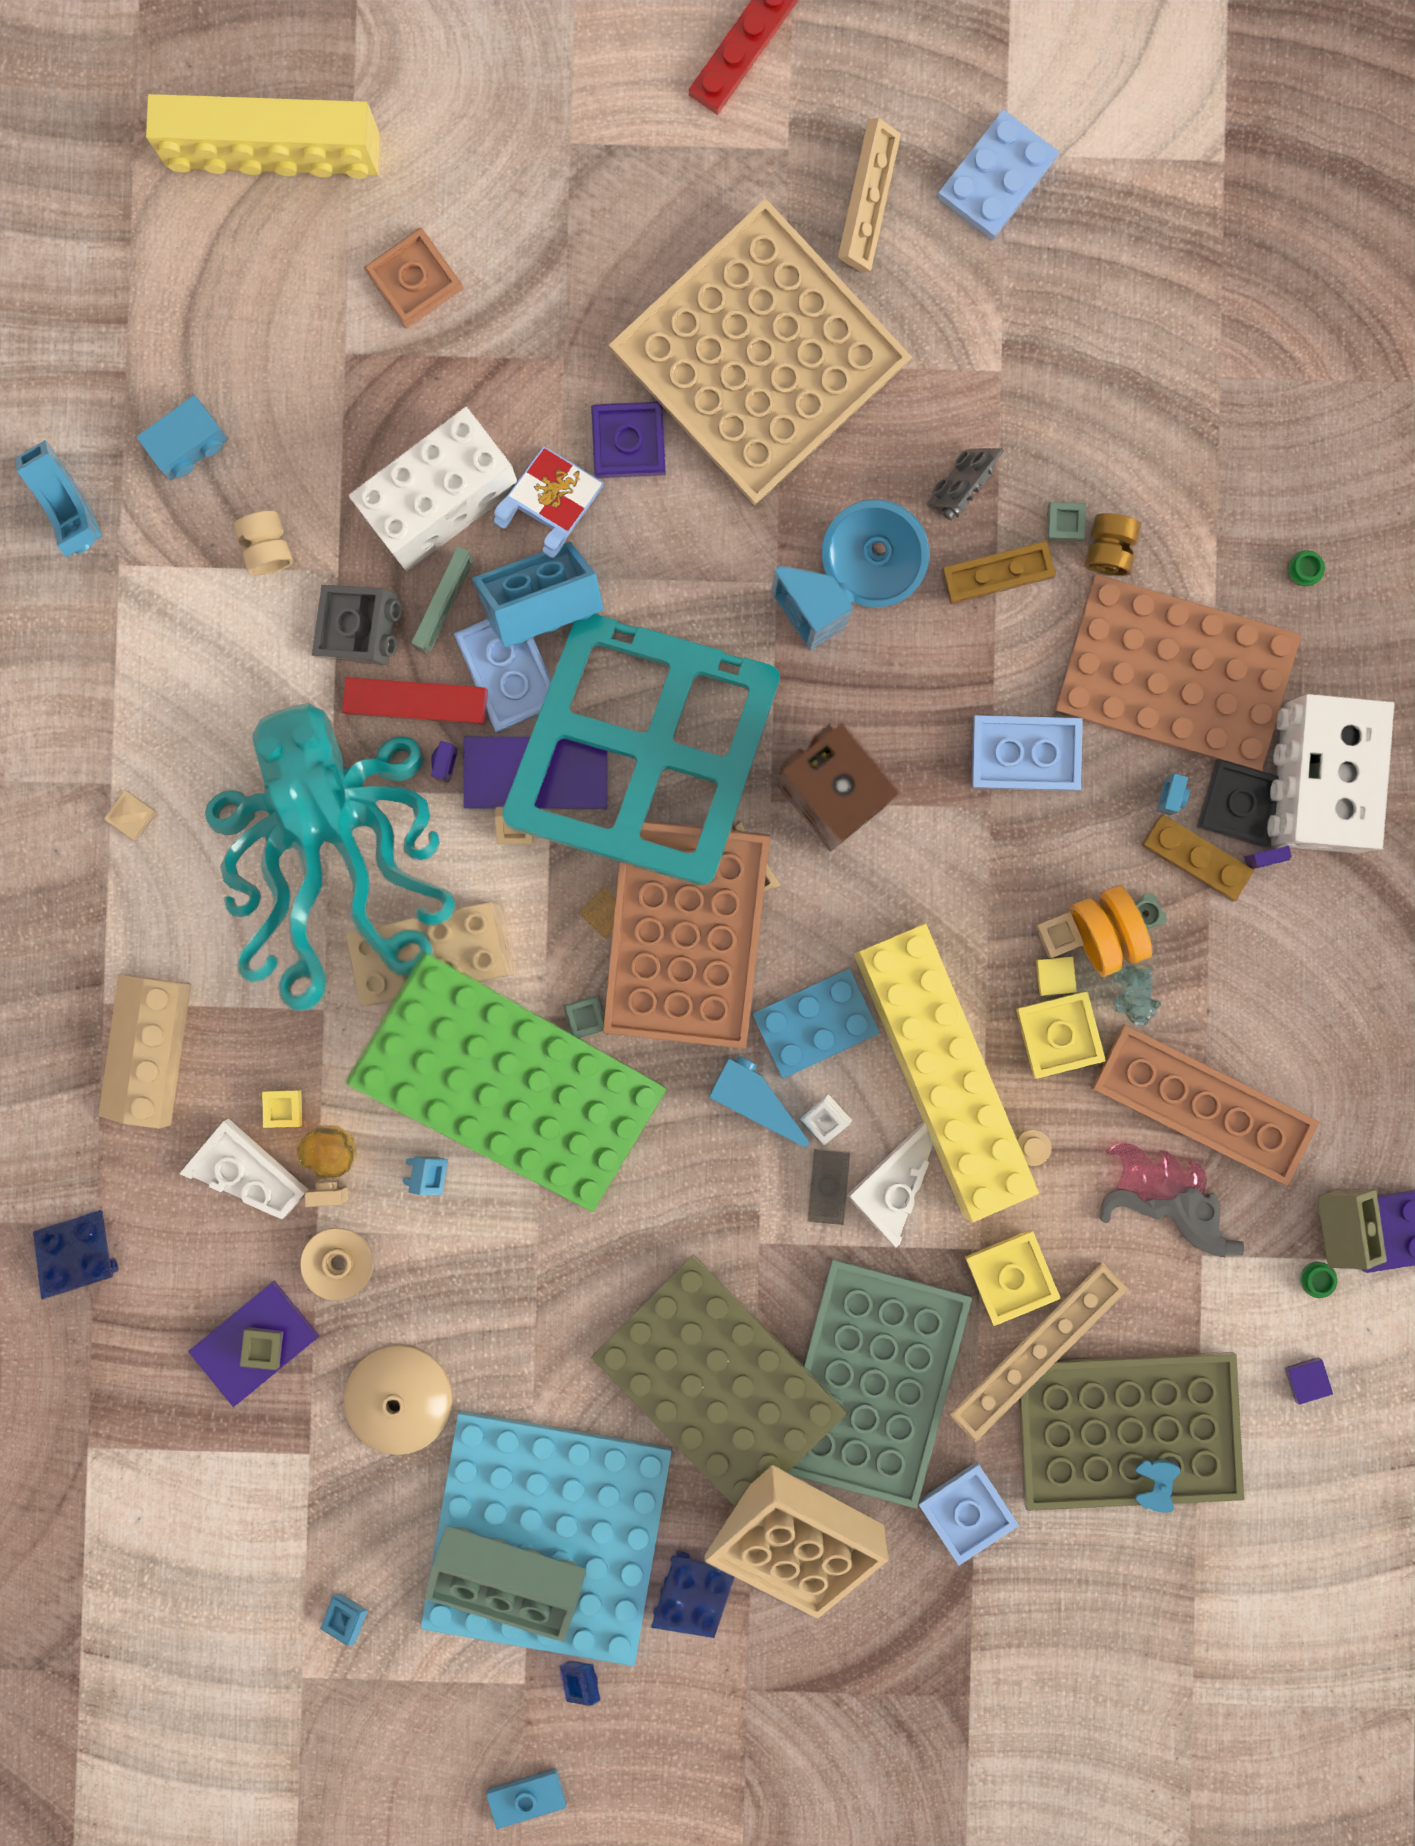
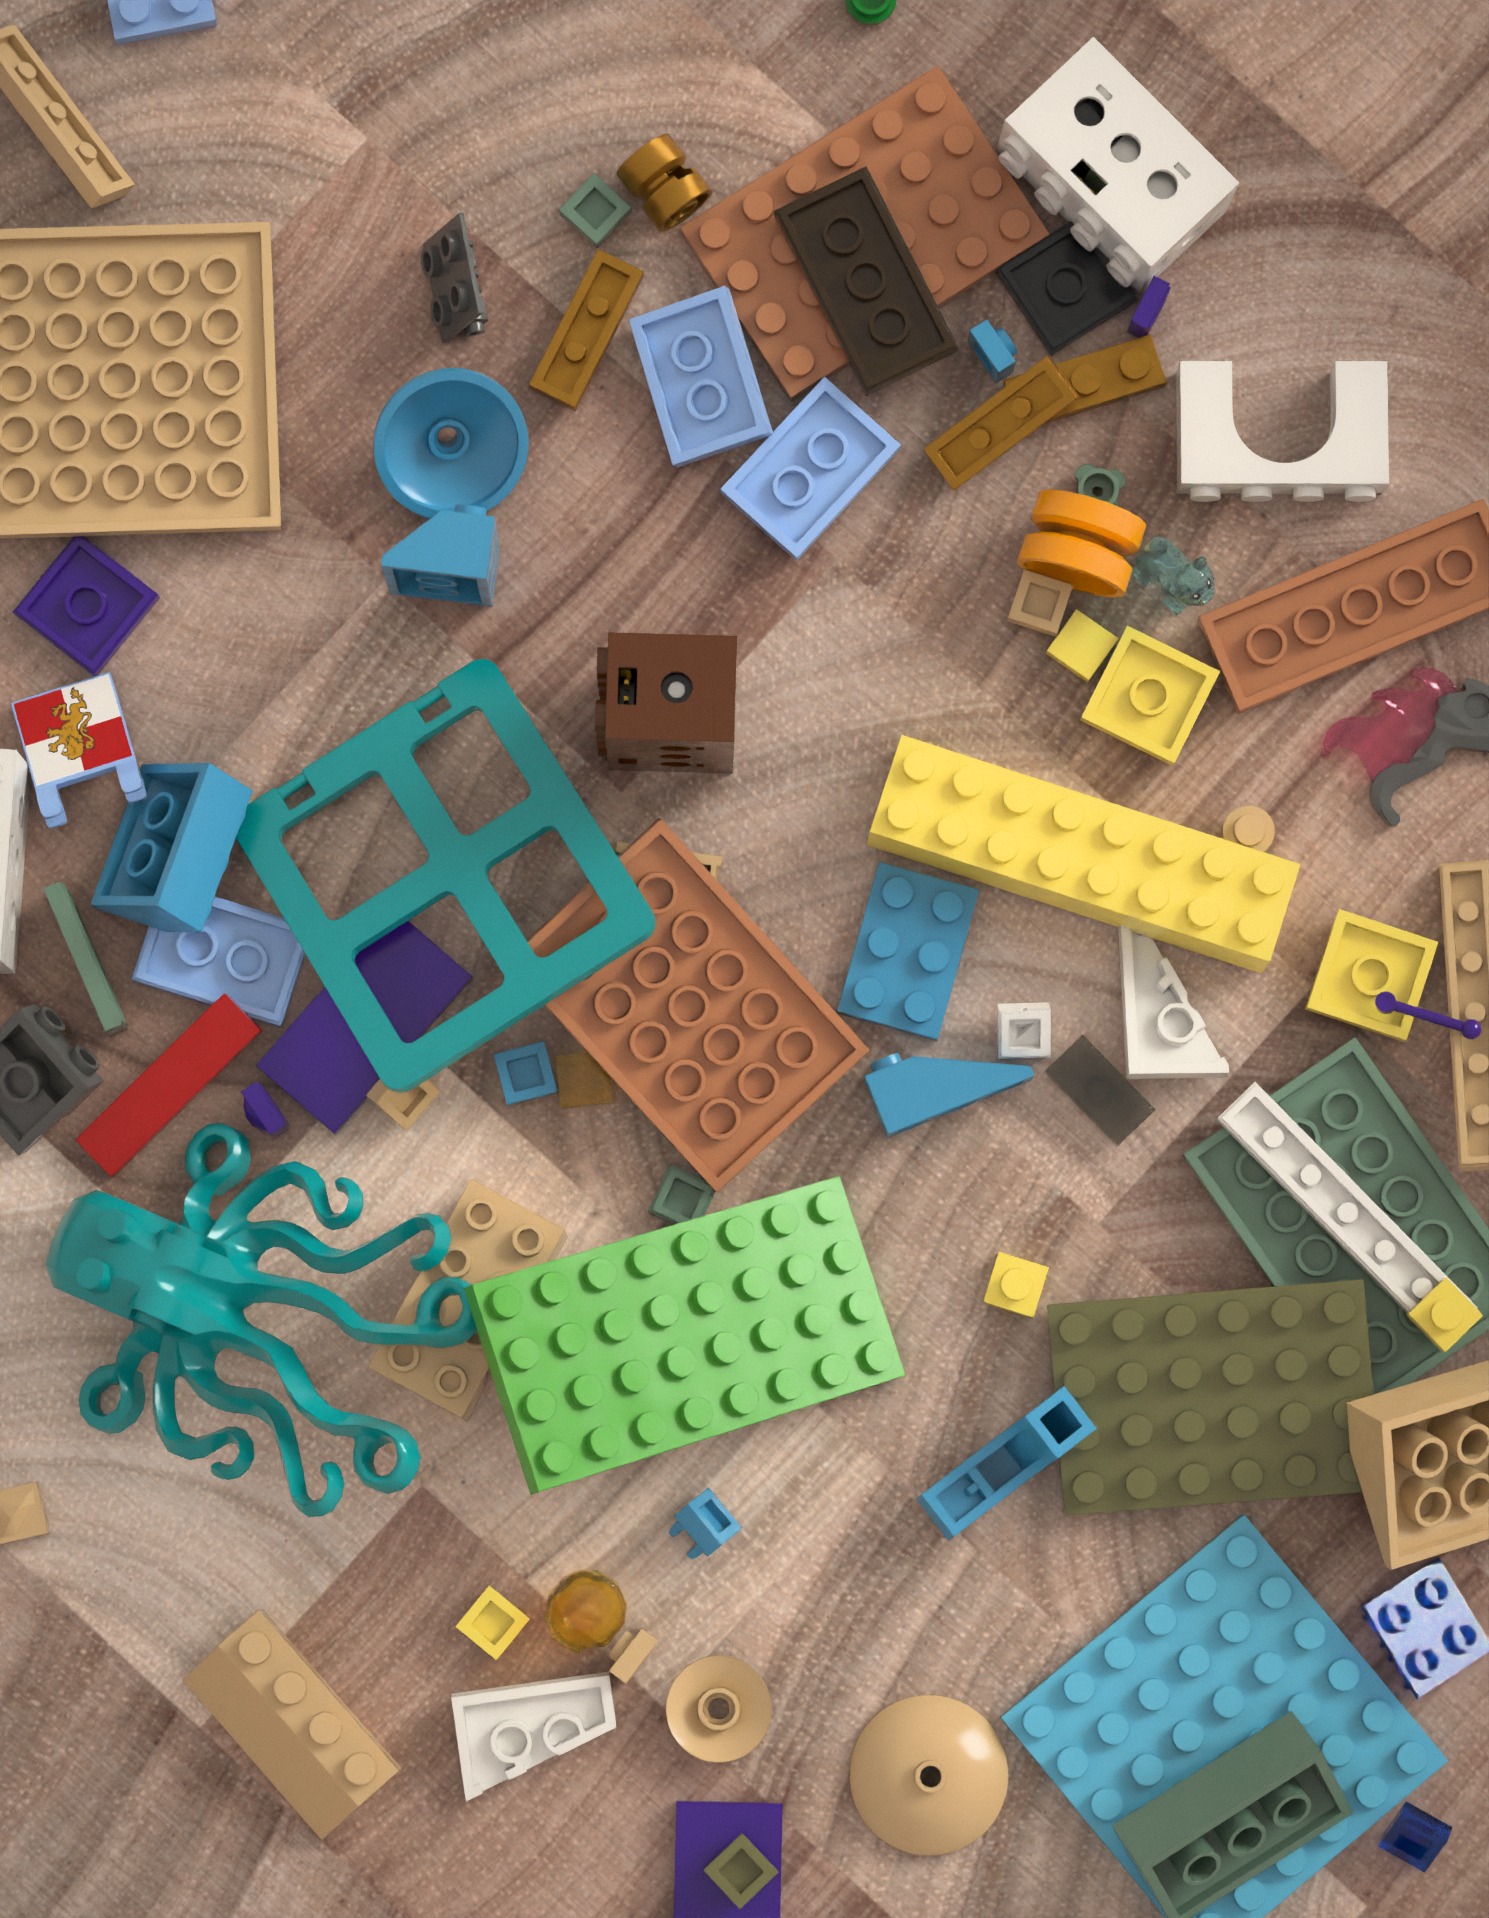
camera: 55 degrees left, 5 degrees down
(579, 880) = (525, 1073): none -> dark azure plate
(603, 1307) = (1006, 1463): none -> dark azure arch
(689, 1228) = (1015, 1285): none -> light yellow plate
(864, 1473) = (1444, 1315): none -> light yellow plate
(874, 1373) = (1331, 1197): none -> white tile
(1004, 1299) = (1387, 1003): none -> dark purple hinge
(1026, 653) = (701, 376): none -> light blue plate
(1139, 832) = (1001, 422): none -> pearl gold plate
(1153, 696) = (866, 281): none -> dark brown tile
(1217, 963) = (1217, 461): none -> white arch

